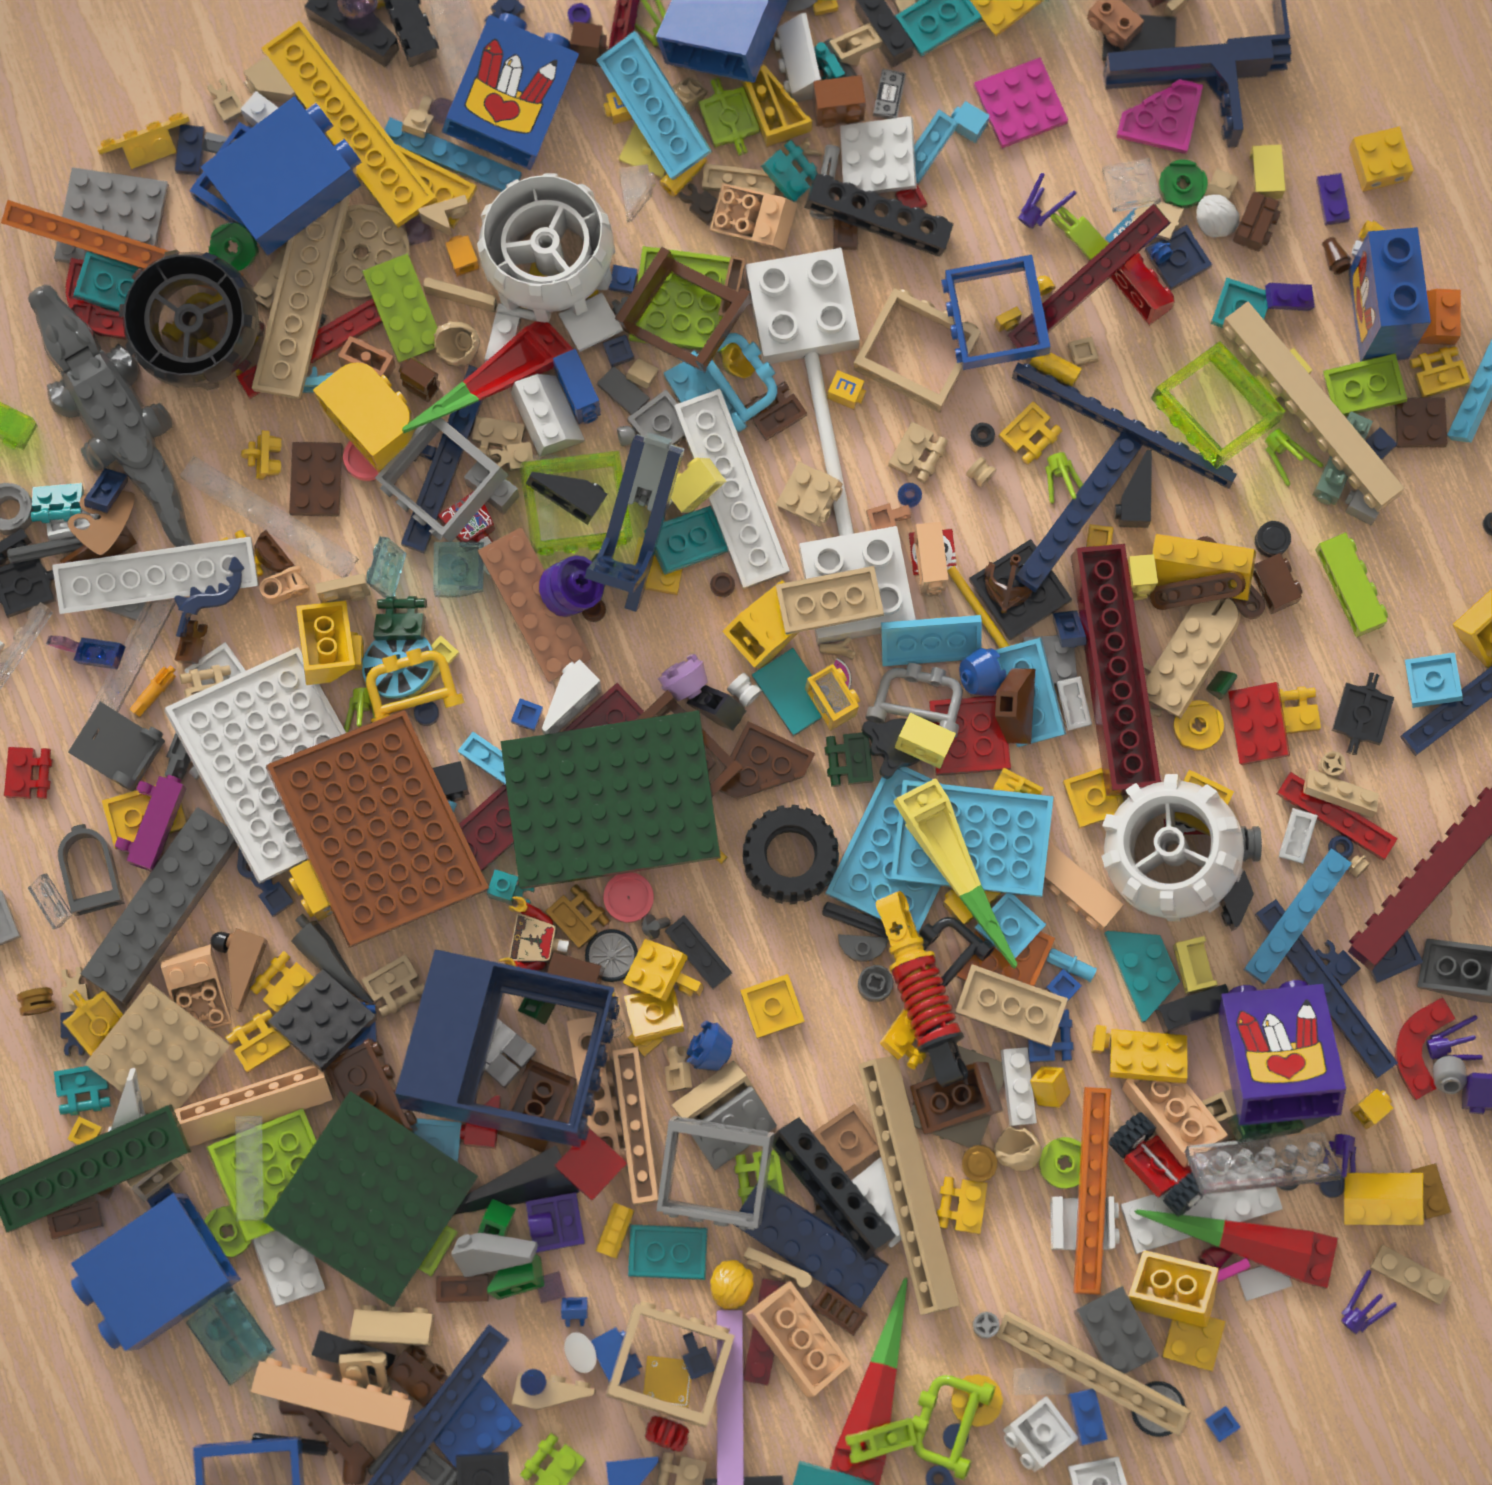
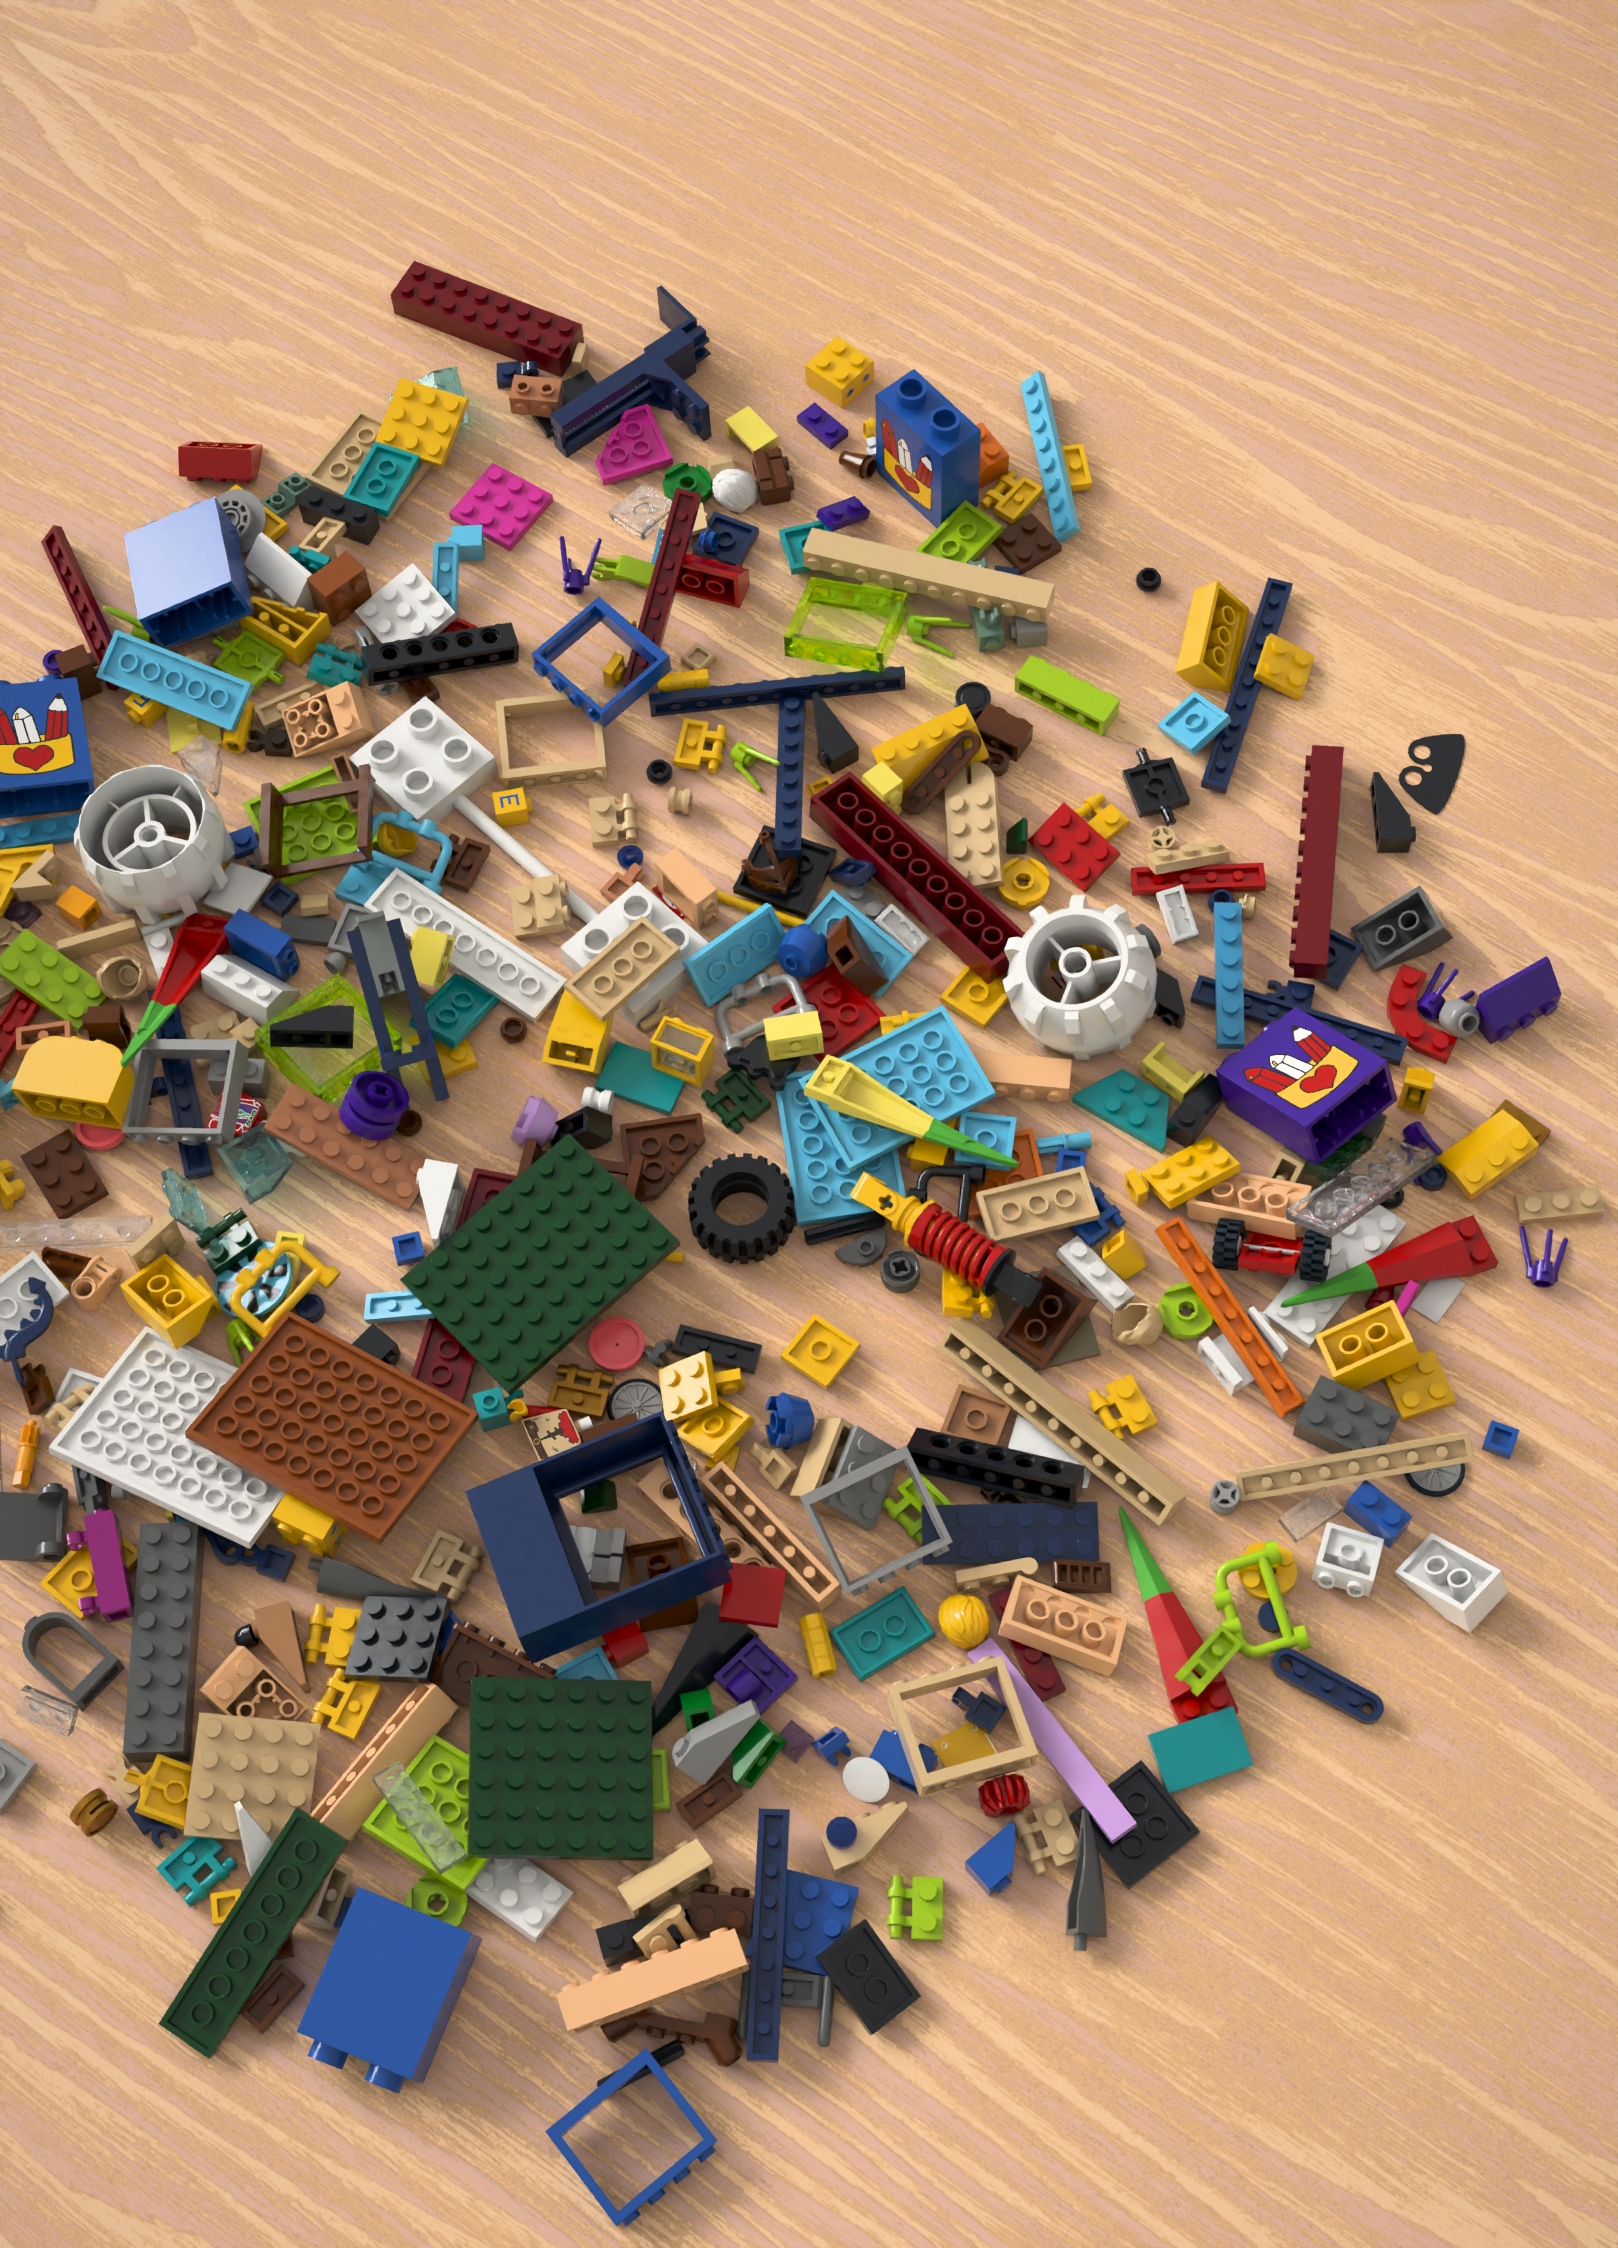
camera: 30 degrees left, 15 degrees down
(230, 1335) = (507, 2002): clear light blue slope -> none
(889, 94) = (379, 563): tile -> none
(979, 1163) = (1111, 1360): pearl gold wheel -> none

